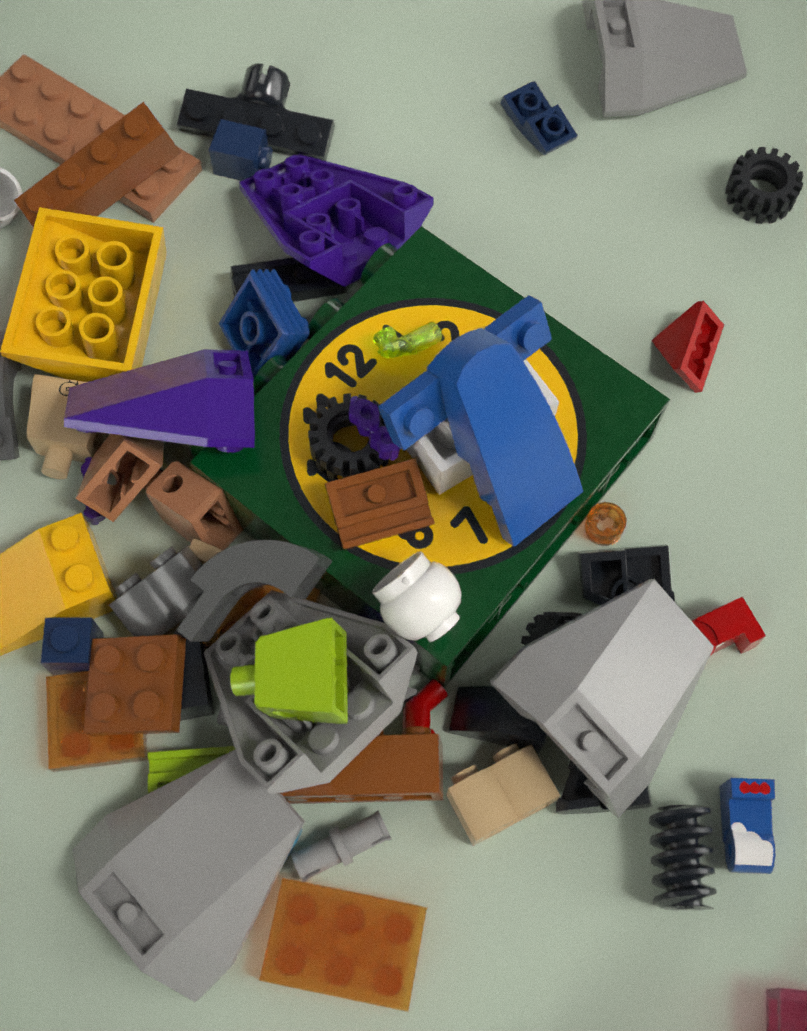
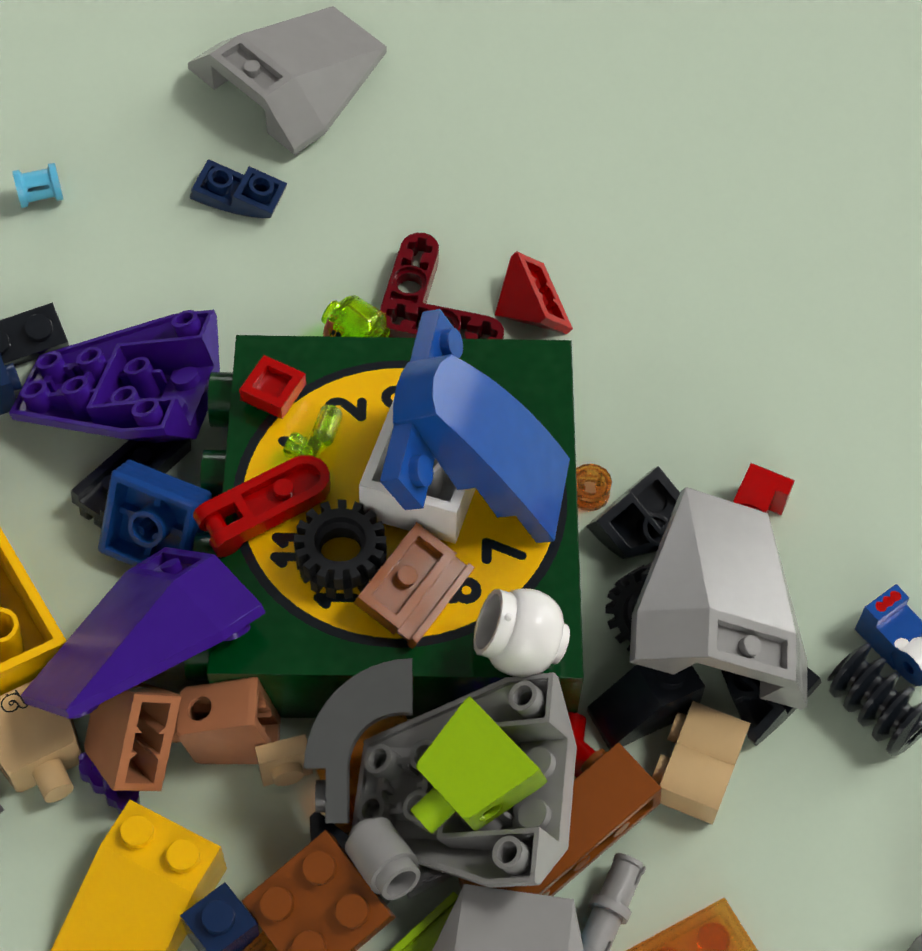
camera: 40 degrees left, 10 degrees down
(158, 600) = (271, 816): dark grey brick -> none
(197, 685) = (383, 858): none -> light grey brick
(328, 365) = (263, 502): none -> red plate
(366, 418) = (351, 519): dark purple piece -> none
(398, 26) = (37, 185): none -> medium azure bush
(408, 282) = (272, 386): none -> red plate
(531, 274) = (354, 319): none -> clear neon green head
(592, 298) = (412, 305): none -> dark red beam
(769, 168) = (479, 147): black tyre -> none

